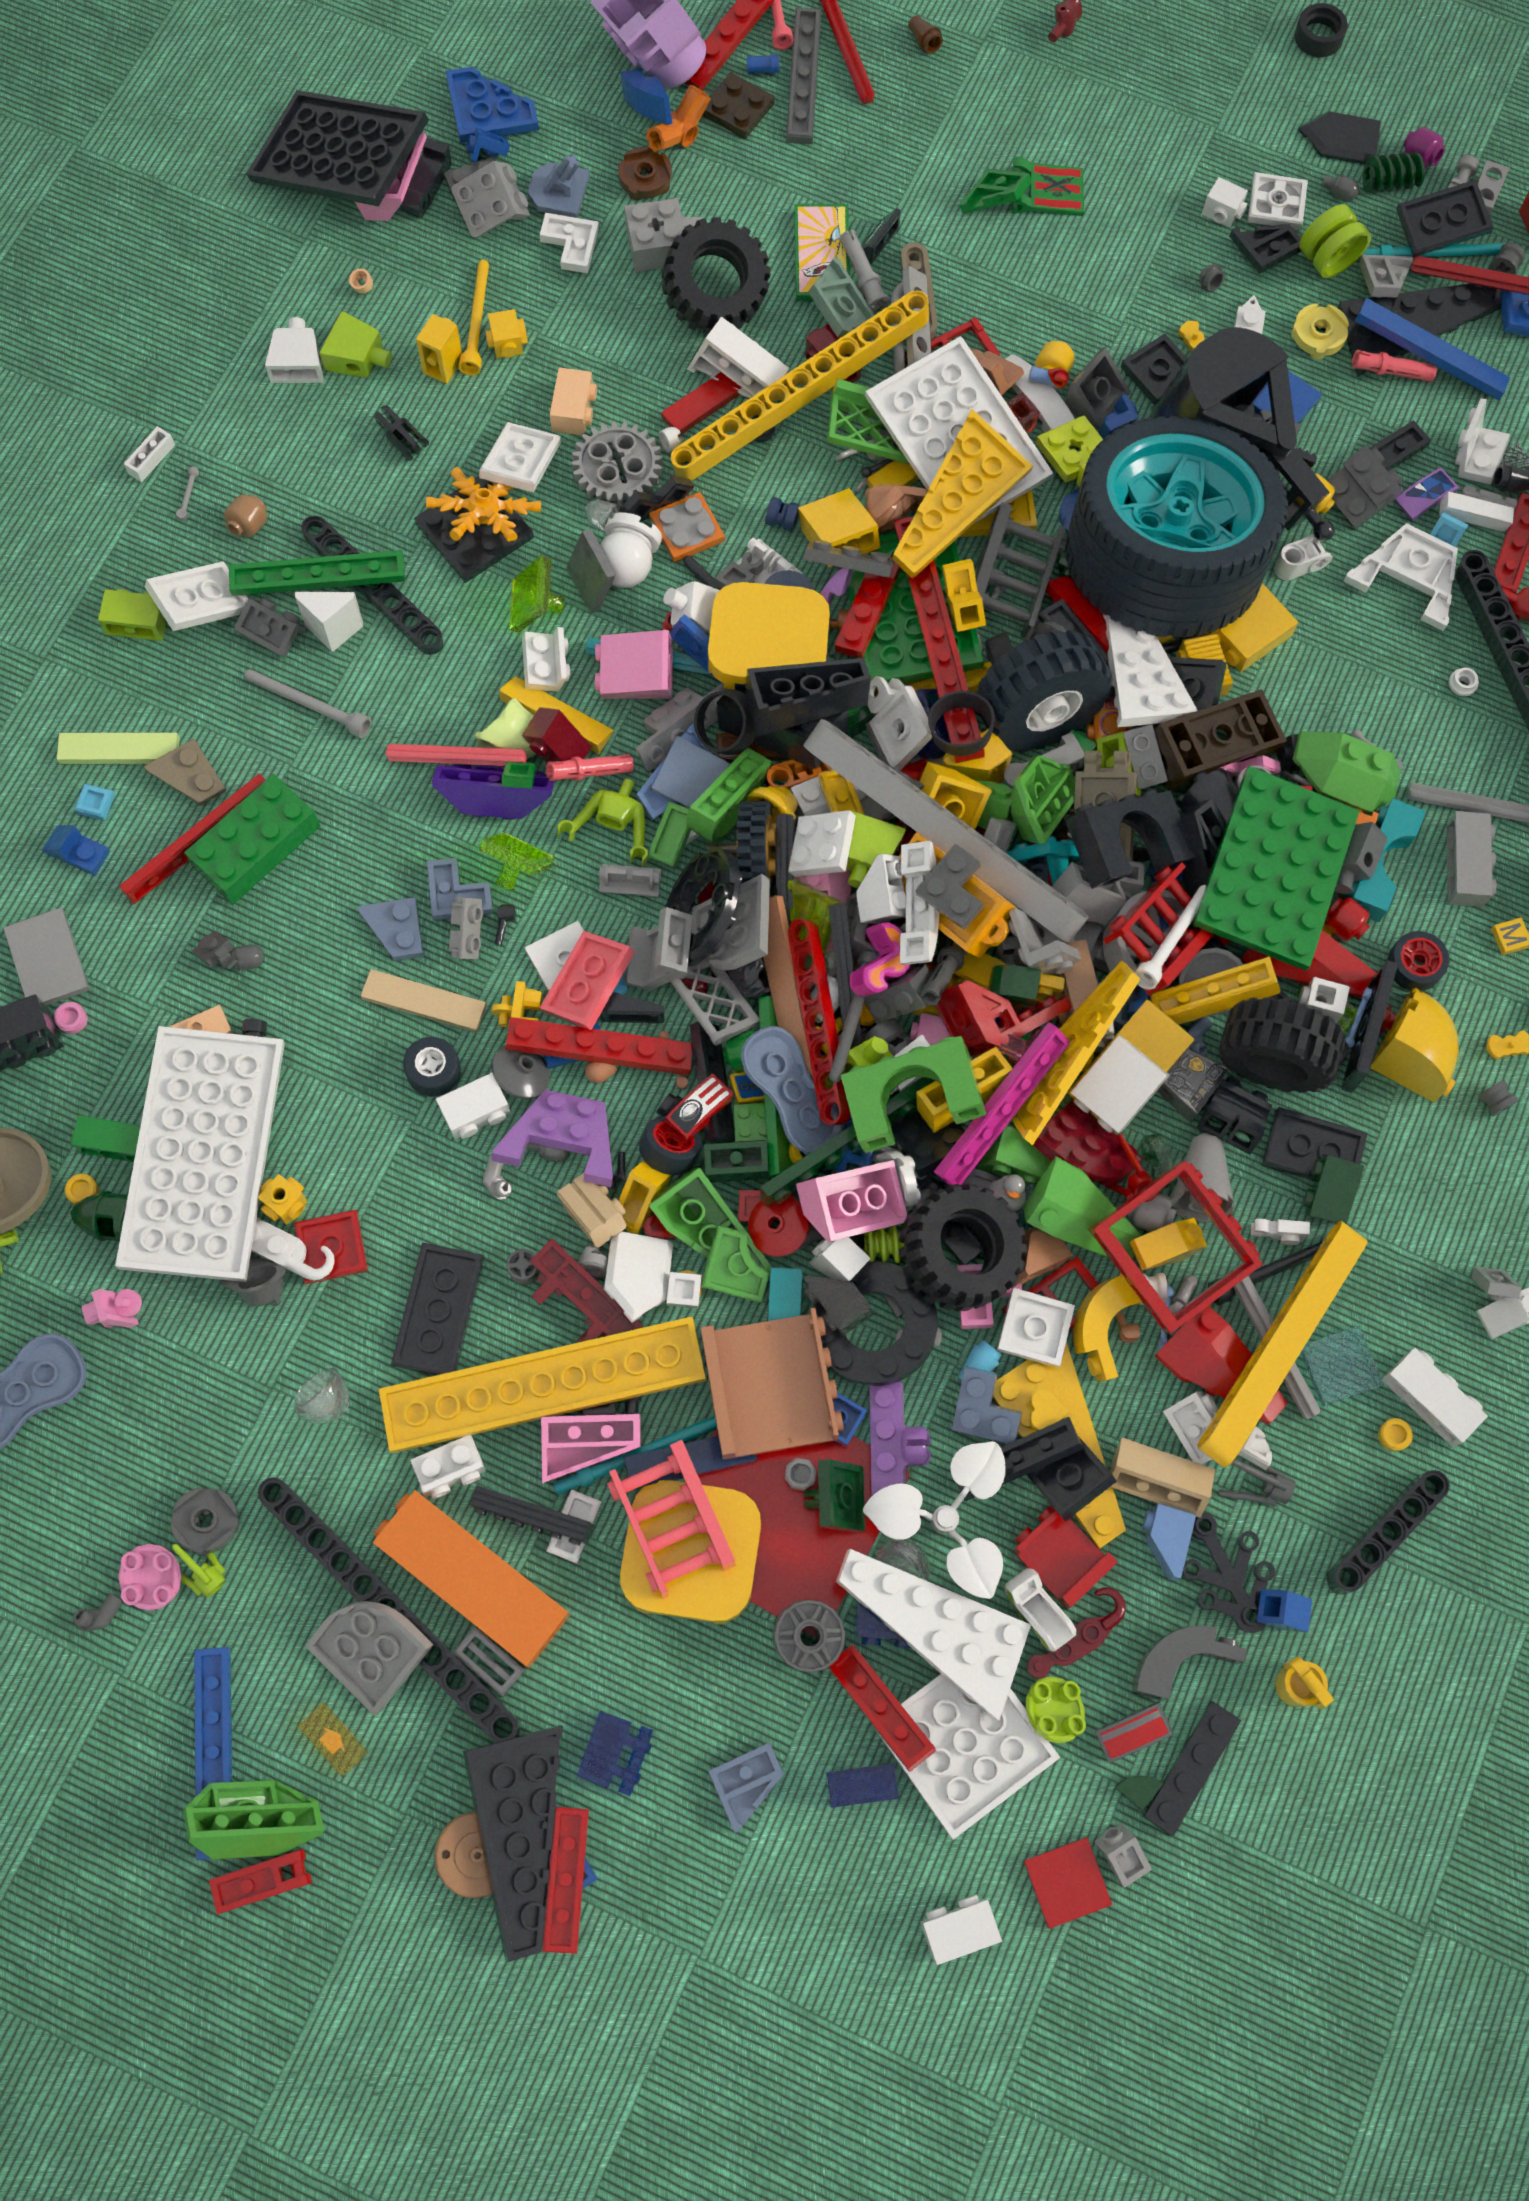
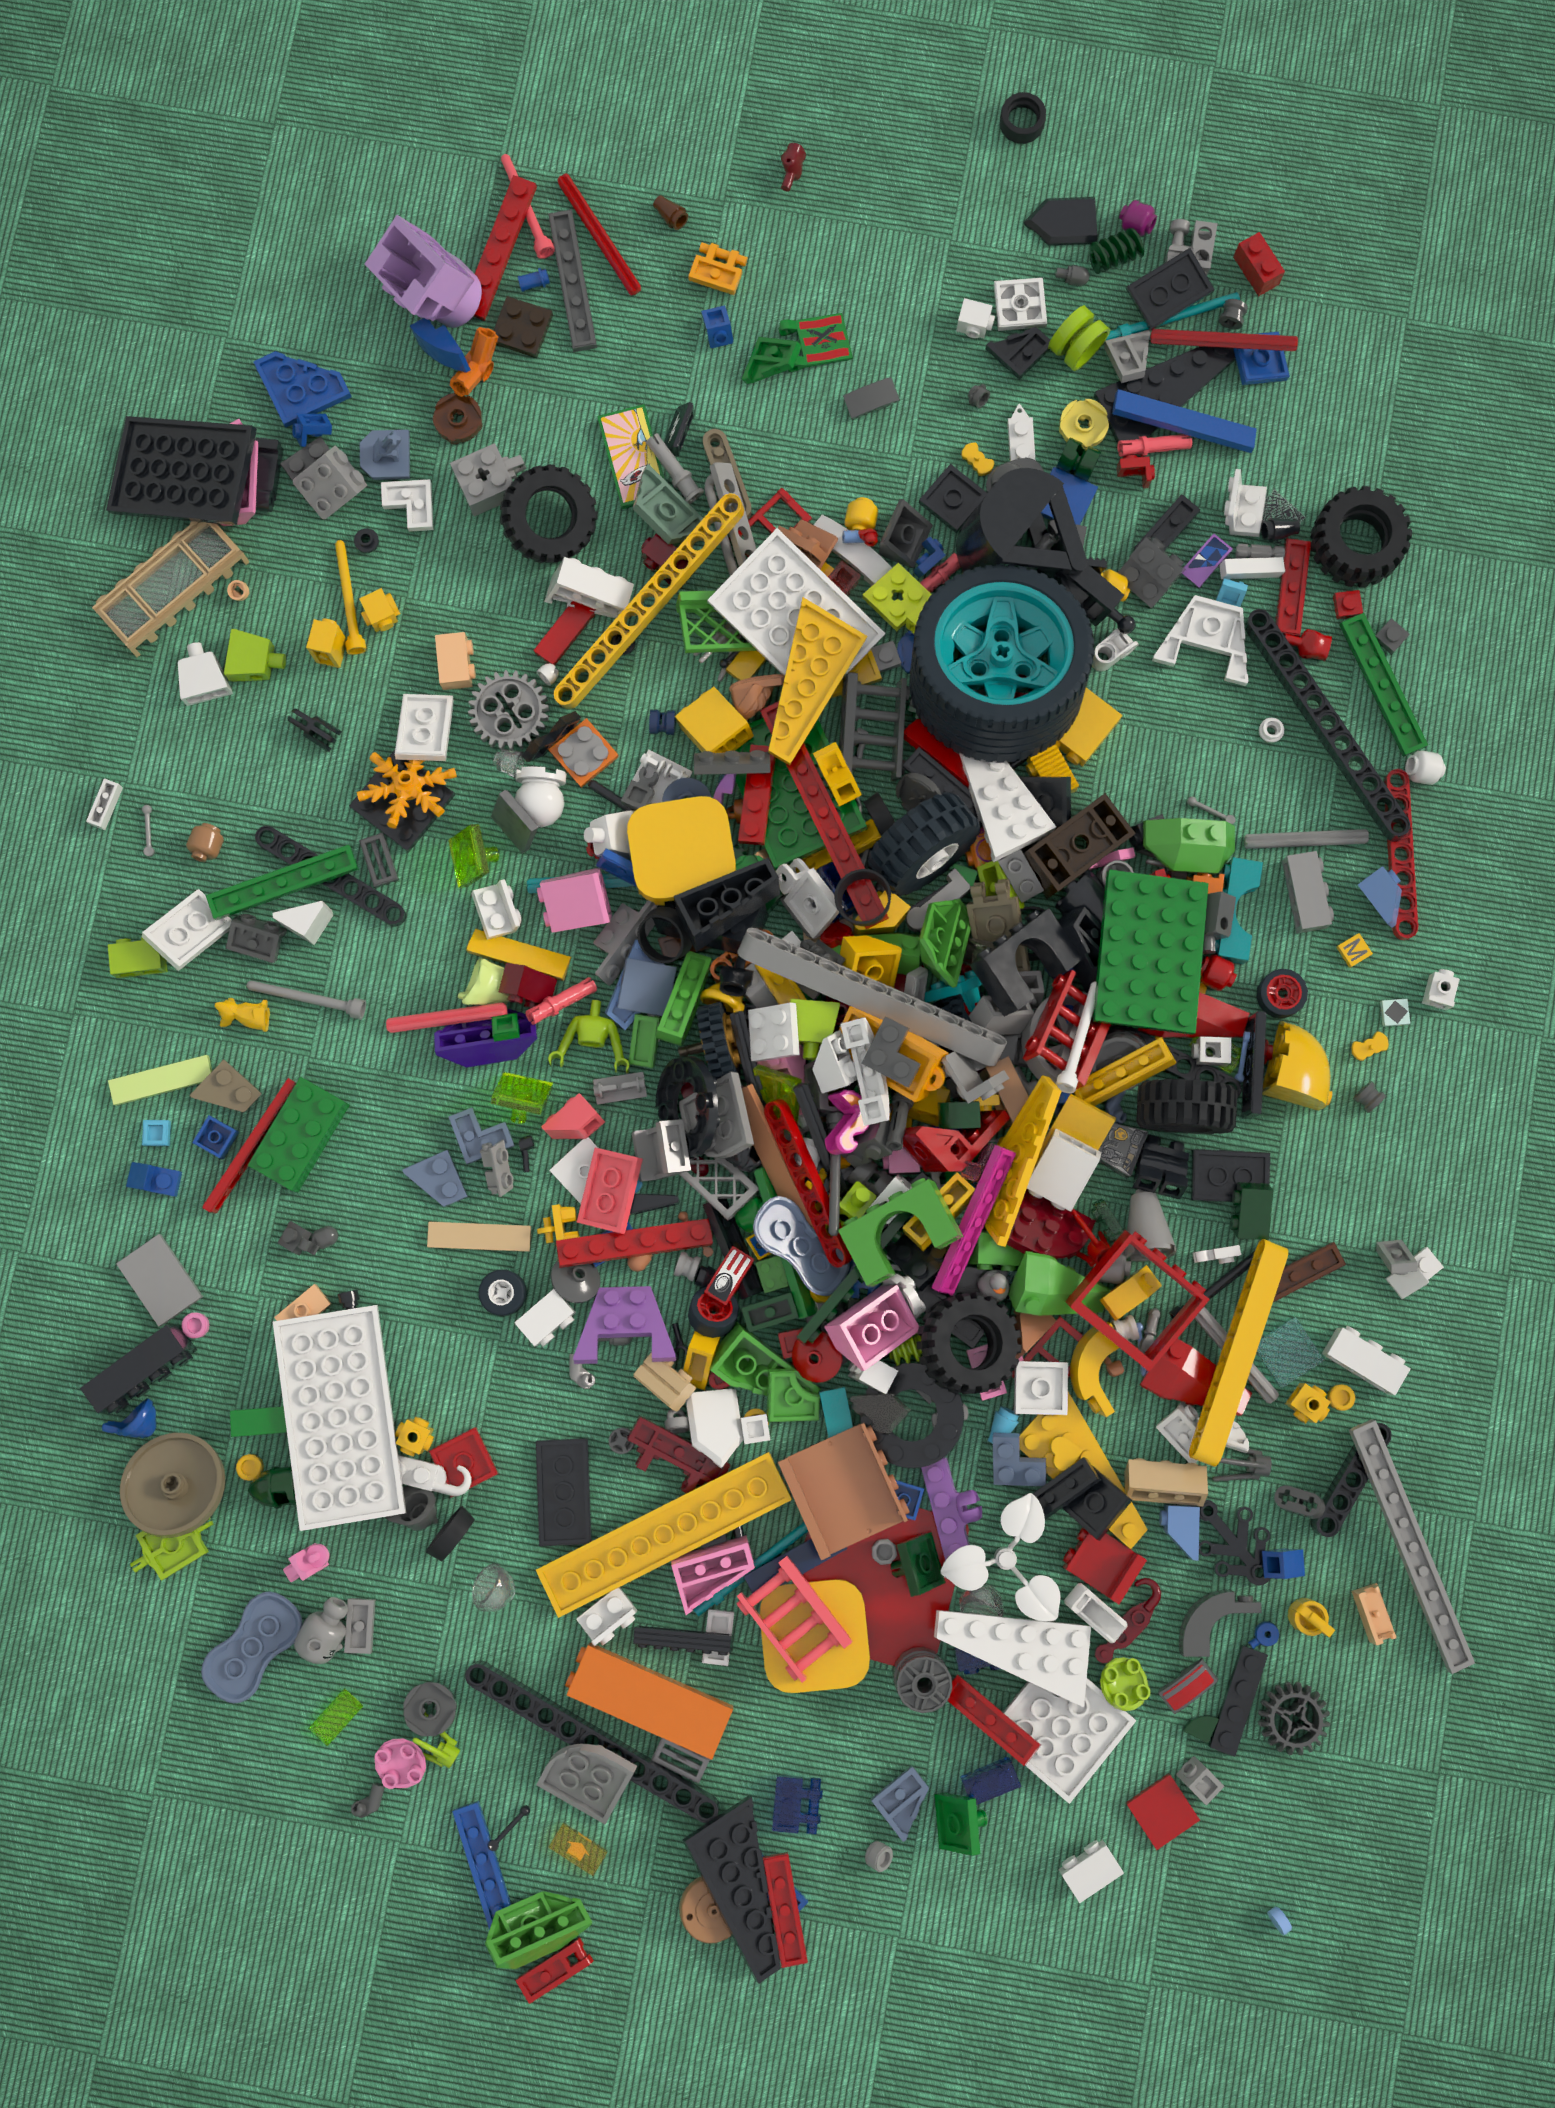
camera: 10 degrees left, 10 degrees up
(90, 1504) = (335, 1717): none -> clear neon green tile
(105, 1394) = (322, 1632): none -> light grey piece
(152, 1402) = (359, 1626): none -> light grey plate
(159, 820) = (215, 1137): none -> blue piece
(232, 1702) = (494, 1844): none -> black hinge
(236, 700) = (250, 1015): none -> yellow animal
(289, 255) = (168, 583): none -> window
(290, 1318) = (450, 1534): none -> black tyre
(430, 602) = (385, 880): none -> dark grey tile
(510, 272) = (366, 547): none -> black plate
(567, 899) = (574, 1120): none -> coral slope
(653, 1090) = (687, 1266): none -> light grey wheel
(700, 1845) = (878, 1856): none -> light grey tile
(793, 783) = (735, 979): none -> black piece
(810, 1825) = (958, 1823): none -> green tile
(946, 150) = (717, 326): none -> blue bracket
(961, 96) = (717, 274): none -> light orange plate
(1048, 508) = (886, 656): none -> light grey plate
(1092, 251) = (871, 398): none -> dark grey slope
(1185, 2060) = (1279, 1920): none -> light blue tile
(1236, 1696) = (1260, 1637): none -> blue piece
(1268, 1794) = (1314, 1729): none -> dark grey gear
(1308, 360) = (1078, 459): none -> dark green wheel
(1316, 1547) = (1298, 1507): none -> dark grey beam
(1355, 1428) = (1300, 1401): none -> yellow brick
(1368, 383) = (1133, 466): none -> red bracket
(1382, 1703) = (1373, 1614): none -> light nougat hinge
(1384, 1277) = (1309, 1269): none -> reddish brown tile
(1448, 1631) = (1411, 1546): none -> light grey plate

